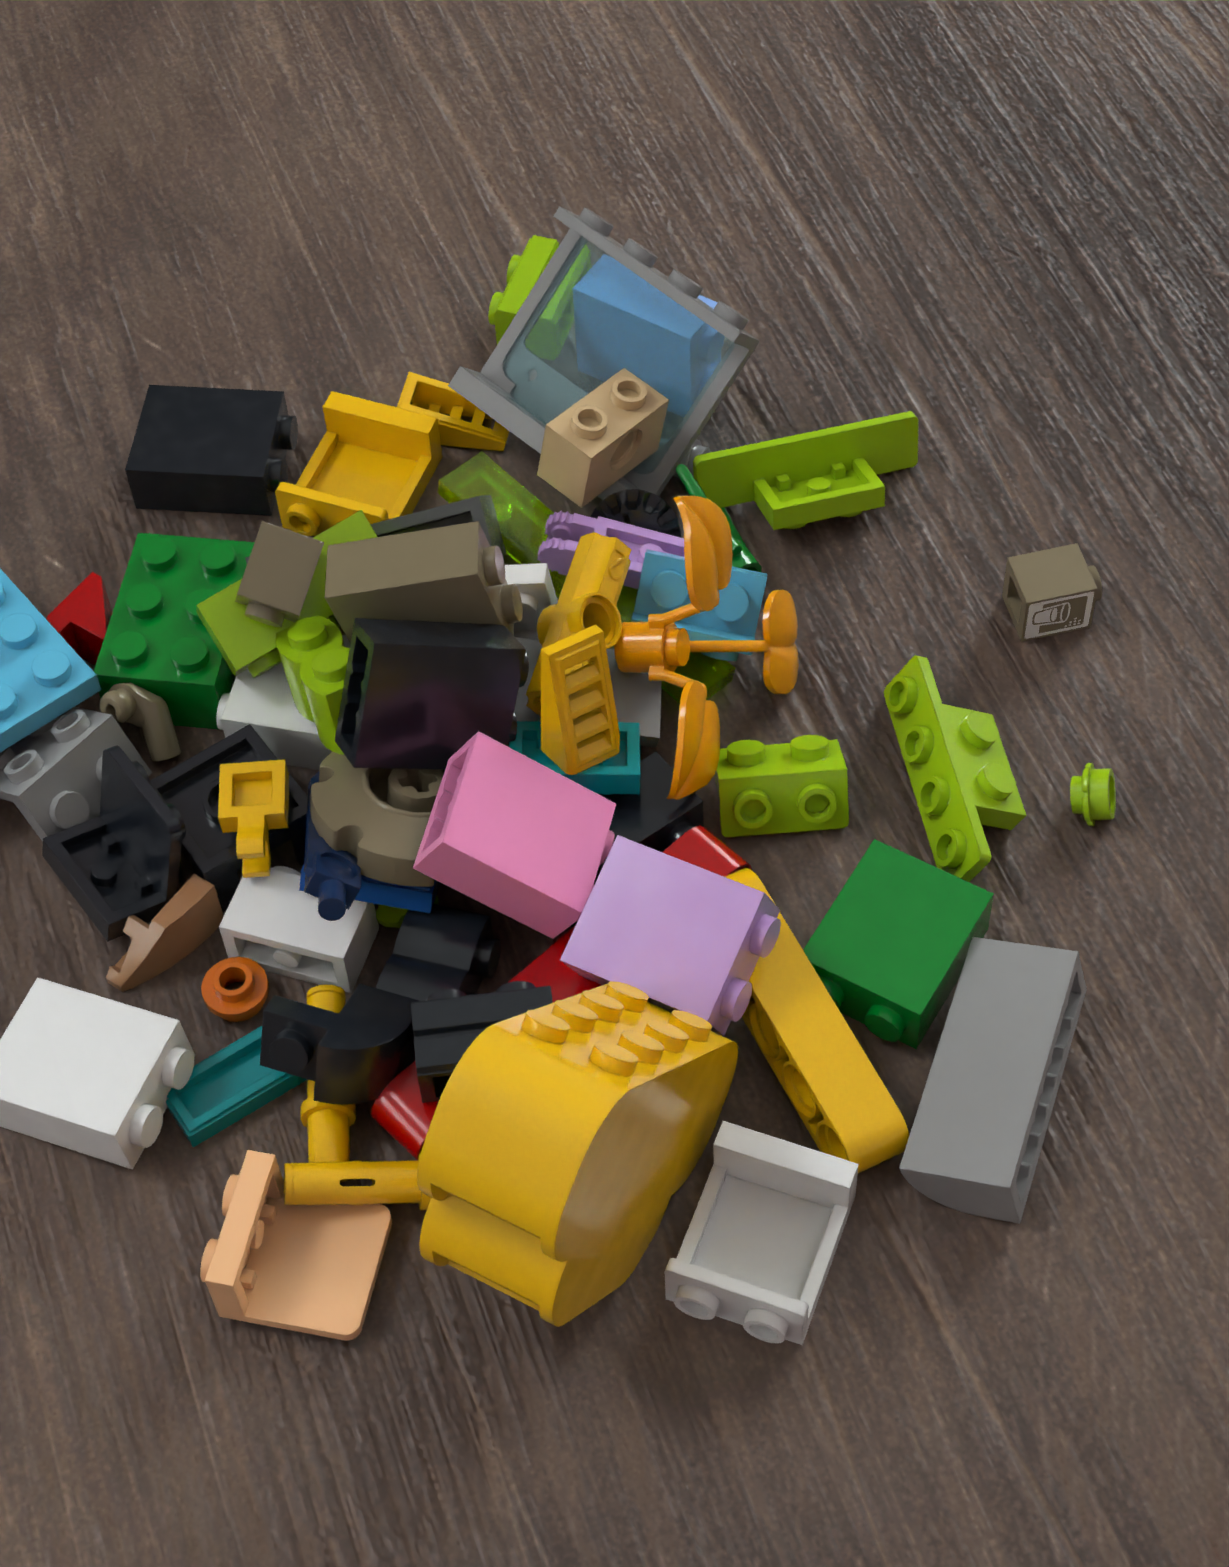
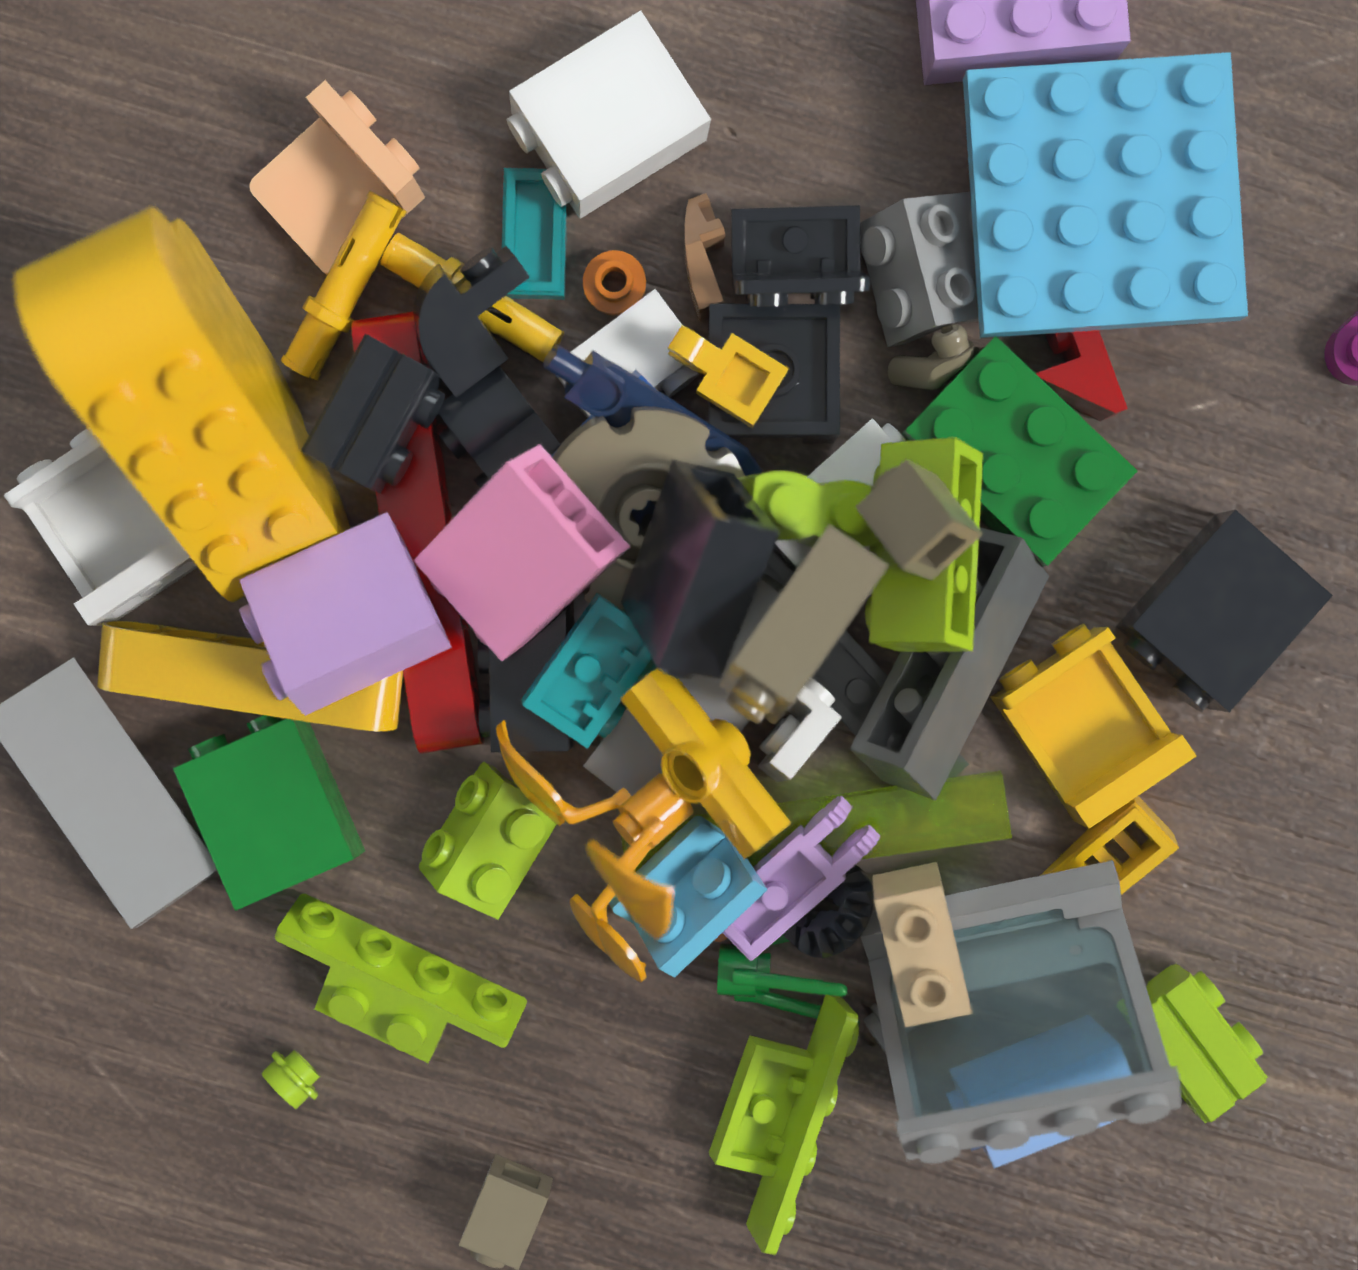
camera: 125 degrees right, 35 degrees up
(581, 725) = (594, 687): yellow slope -> none

